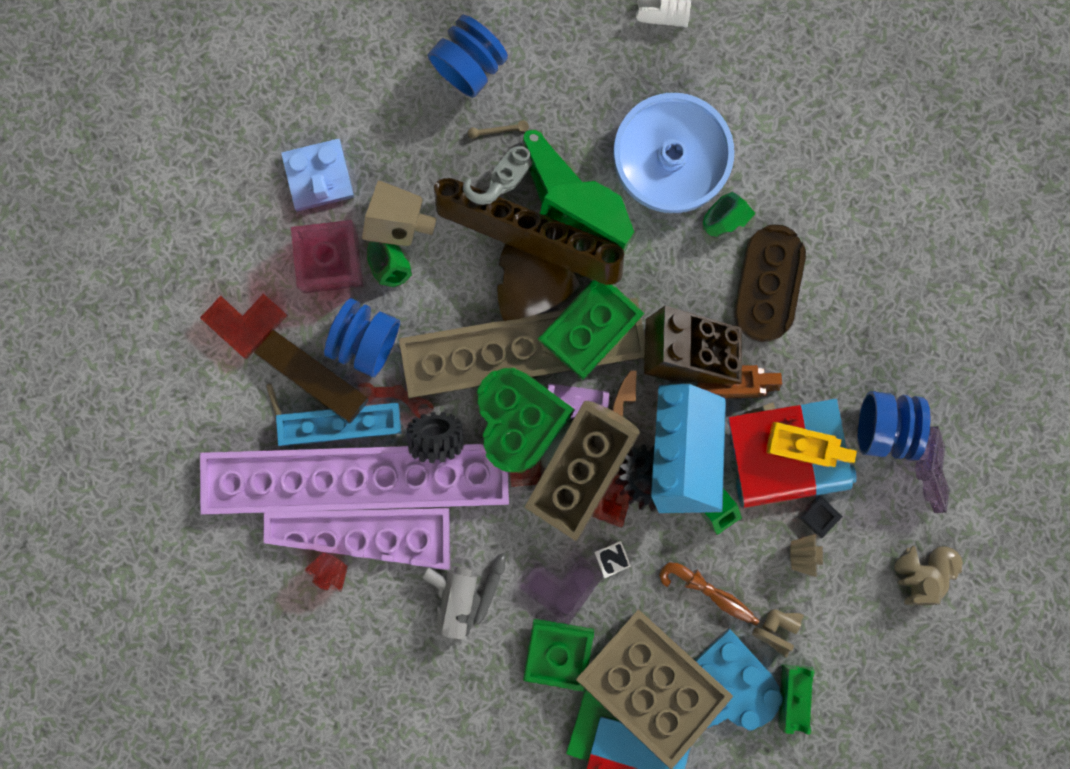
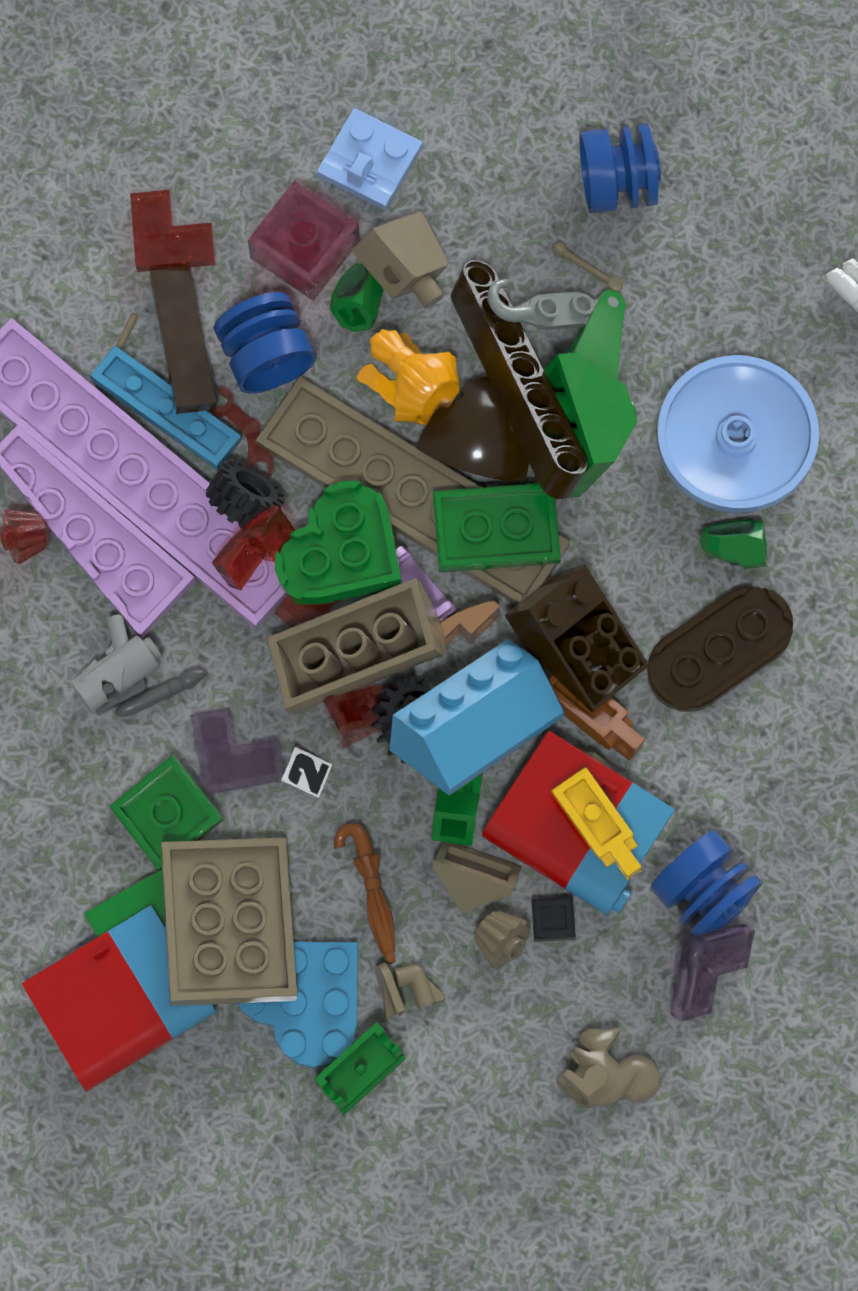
camera: 50 degrees right, 10 degrees down
(468, 454) = (252, 544): none -> clear red slope
(472, 282) = (421, 380): none -> light orange piece
(758, 532) = (474, 876): none -> dark tan slope

